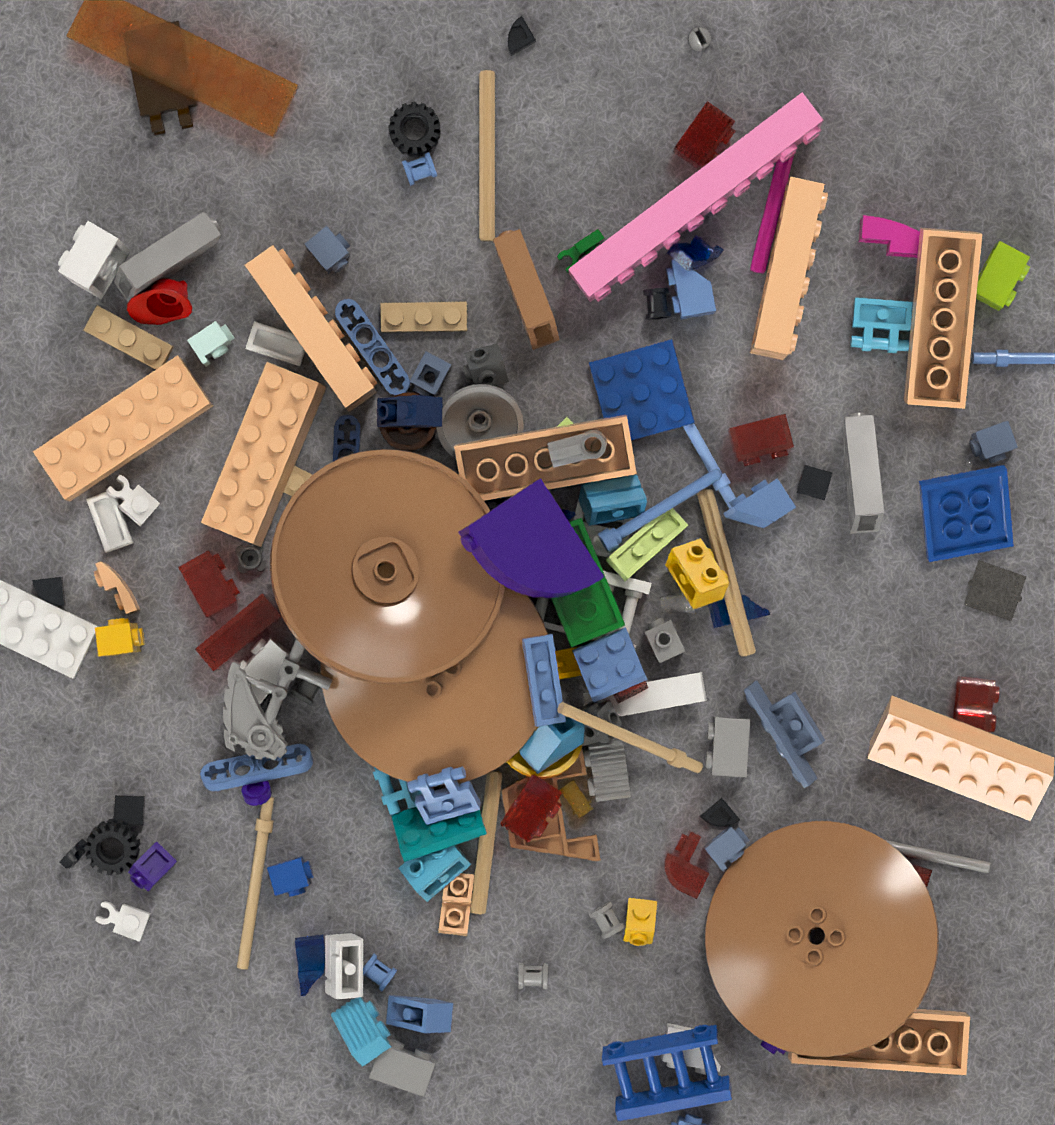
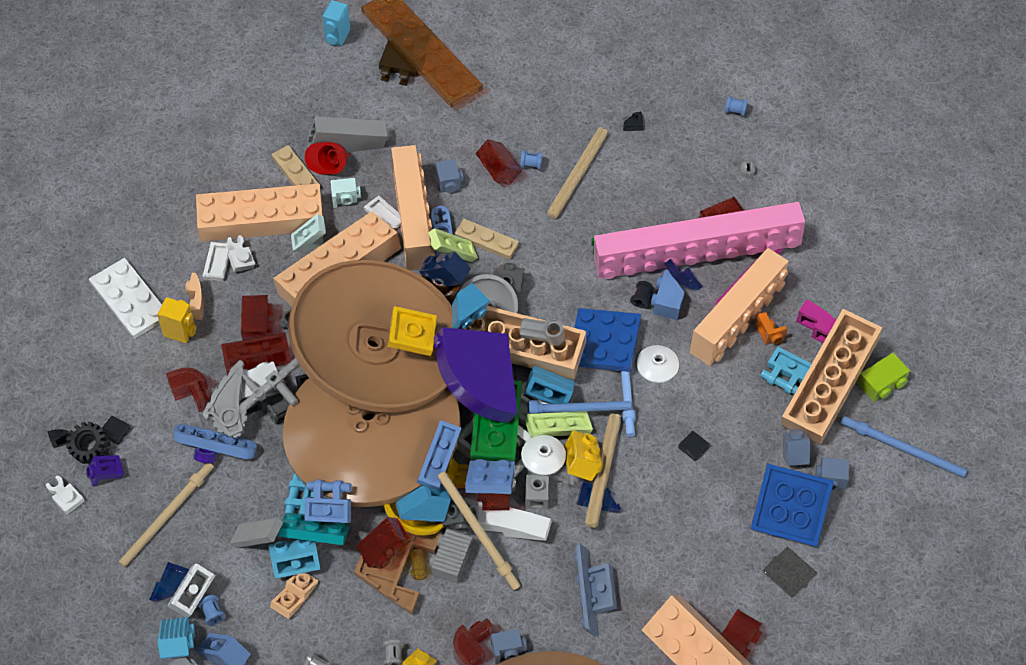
camera: 25 degrees right, 30 degrees down
(51, 85) = (336, 23): none -> medium azure brick
(51, 590) = (154, 281): black tile -> none
(93, 259) = (298, 108): white brick -> none
(182, 706) = (189, 382): none -> clear red brick
(203, 430) = (309, 235): none -> light aqua slope
(290, 876) = (192, 518): blue brick -> none
(379, 865) = (256, 532): none -> light grey tile
(382, 198) = (498, 162): none -> clear red brick
(396, 364) = (447, 242): none -> yellowish green plate
(409, 112) = (540, 130): black tyre -> none
(430, 364) = (477, 265): sand blue brick -> none
(430, 542) = (412, 331): none -> yellow plate
(471, 466) = (468, 306): none -> dark azure slope
(486, 843) = (337, 566): tan axle -> none
(526, 288) = (560, 250): medium nougat slope -> none
(636, 599) = (543, 463): none -> white dish
(708, 399) = (654, 370): none -> white dish
(720, 814) = (514, 622): black tile -> none
(729, 746) = (545, 580): light grey brick -> none
(761, 439) = (670, 400): clear red brick -> none
(762, 507) = (648, 438): medium blue slope -> none
(830, 277) = (767, 330): none -> orange bracket
(862, 474) = (729, 452): light grey slope -> none
(938, 432) = (796, 447): none -> sand blue brick

